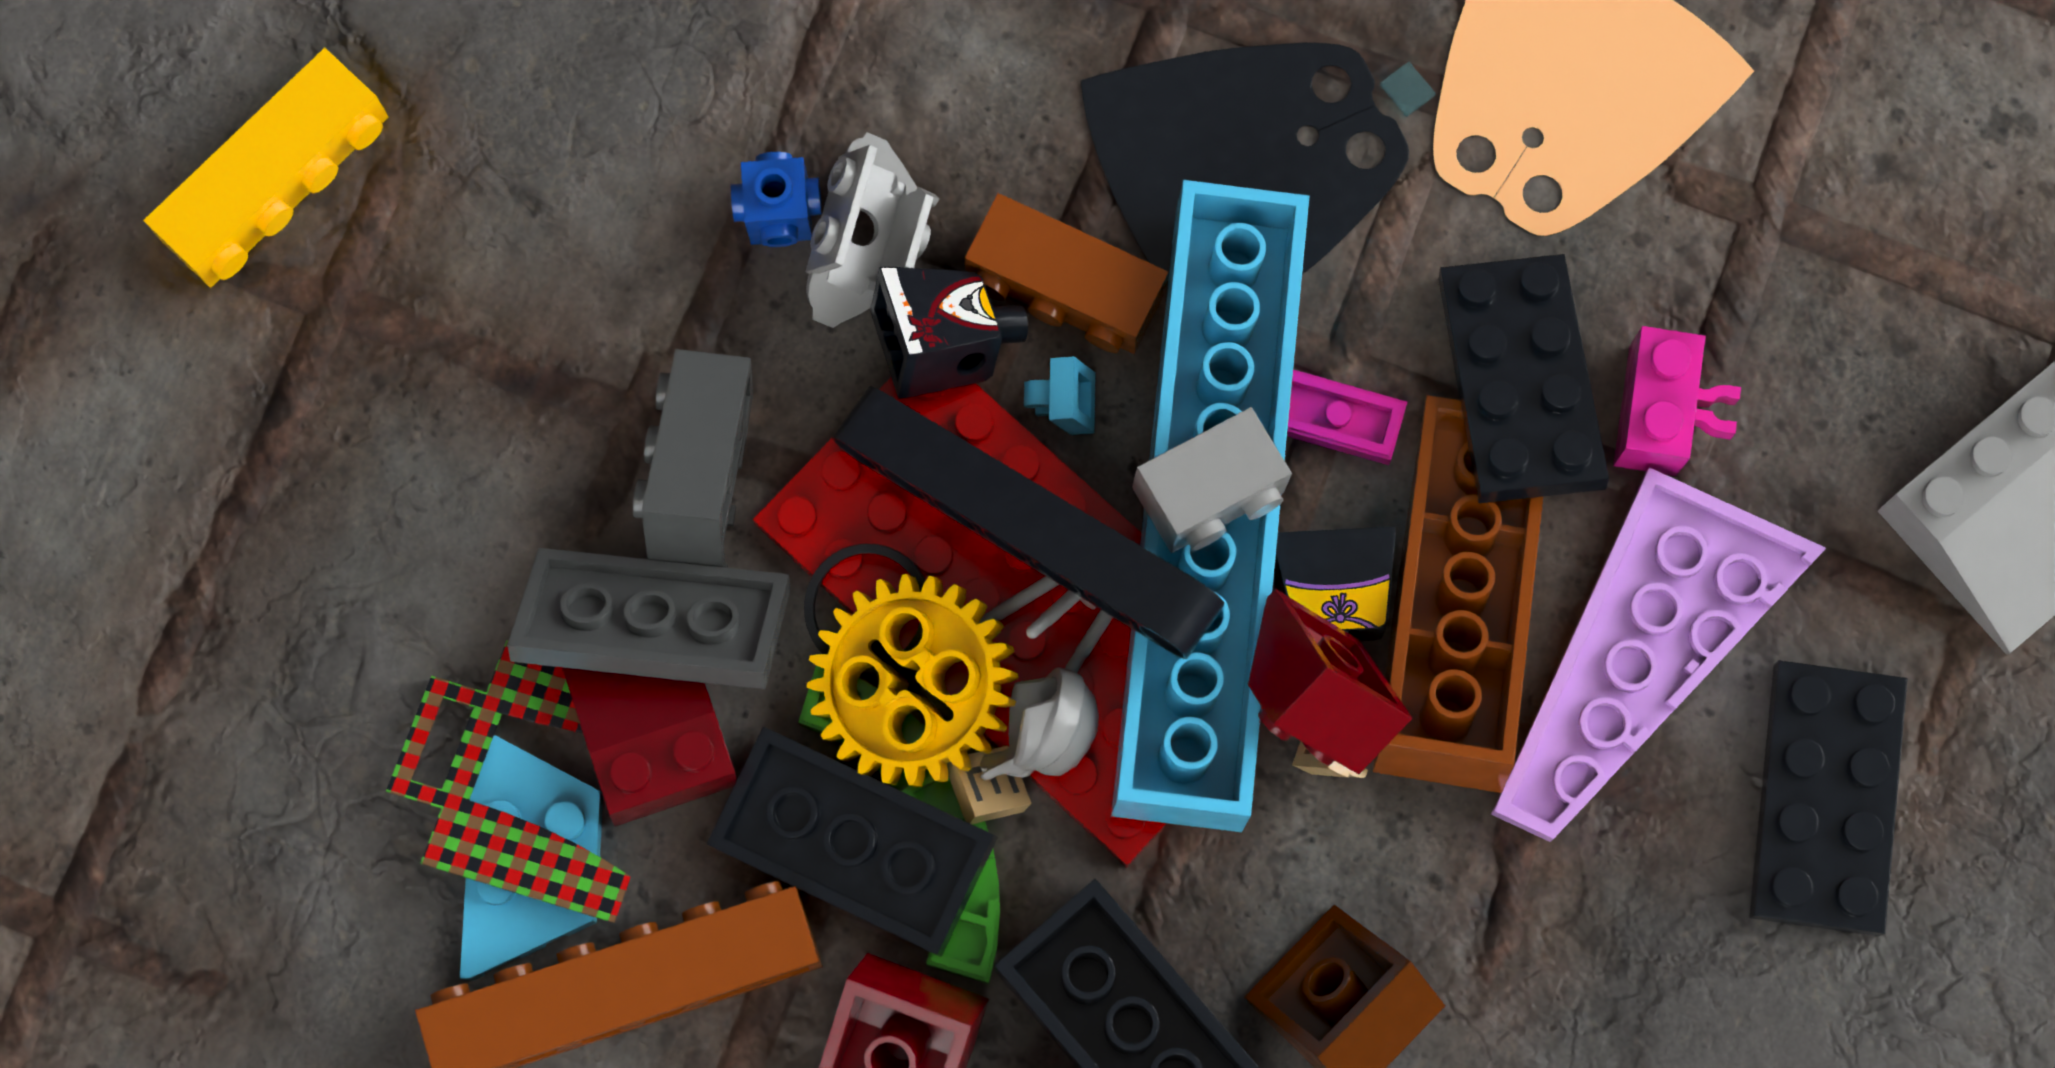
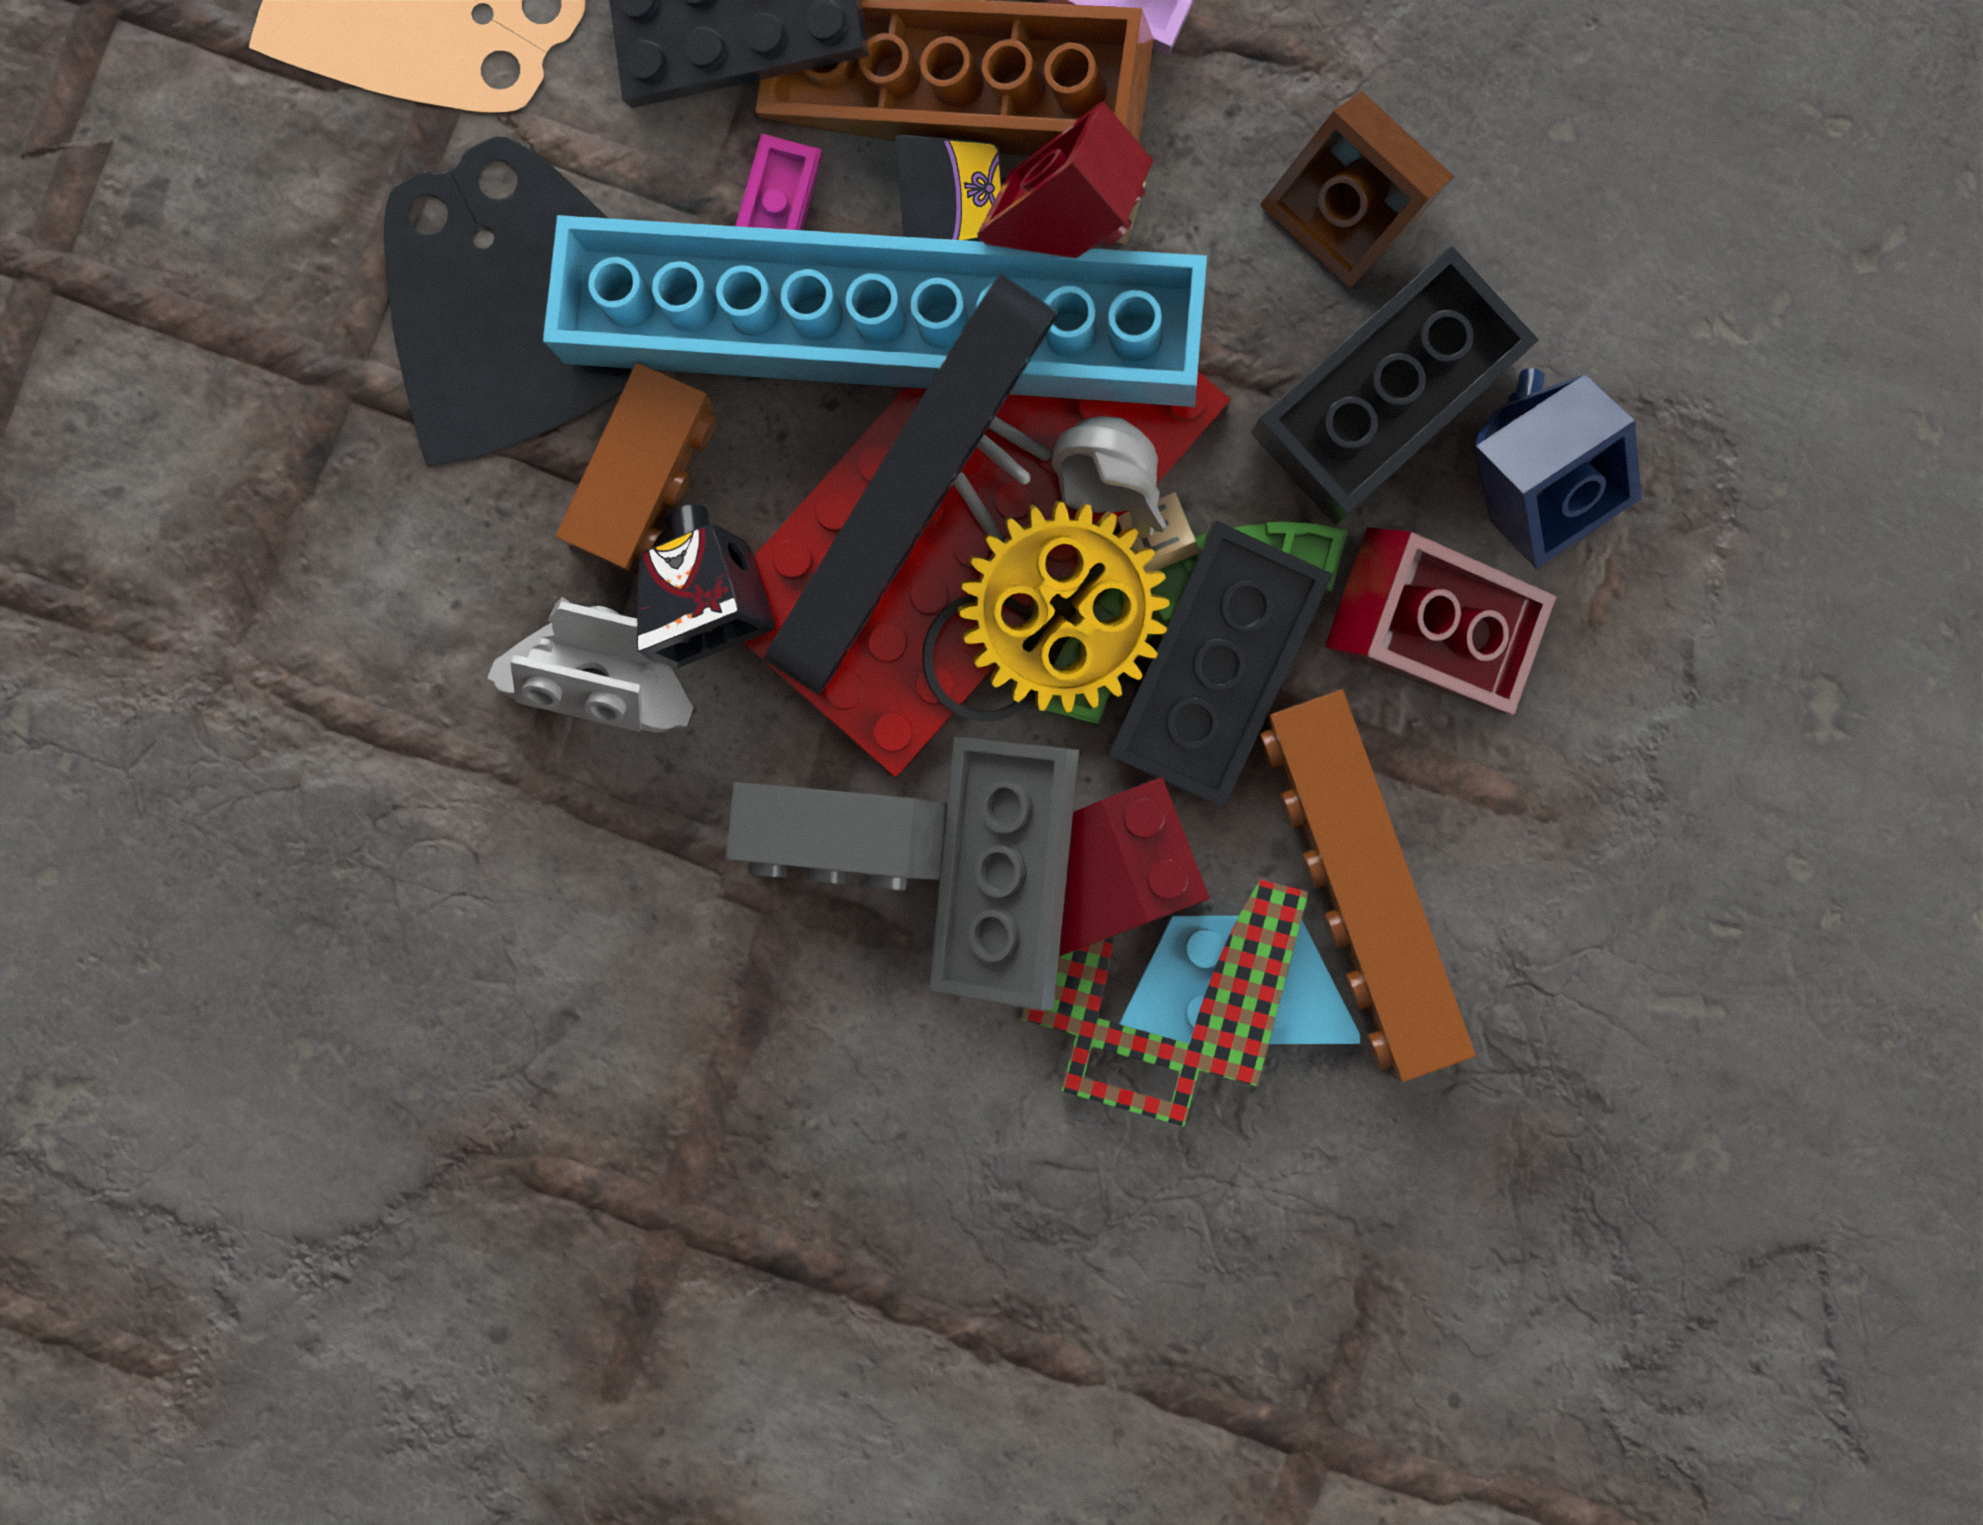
camera: 90 degrees left, 10 degrees up
(268, 168) = (535, 1293): yellow brick -> none
(779, 219) = (586, 767): blue brick -> none
(1065, 397) = (764, 467): medium azure tile -> none
(1212, 482) = (870, 295): light grey brick -> none
(1407, 89) = (432, 137): clear light blue window -> none

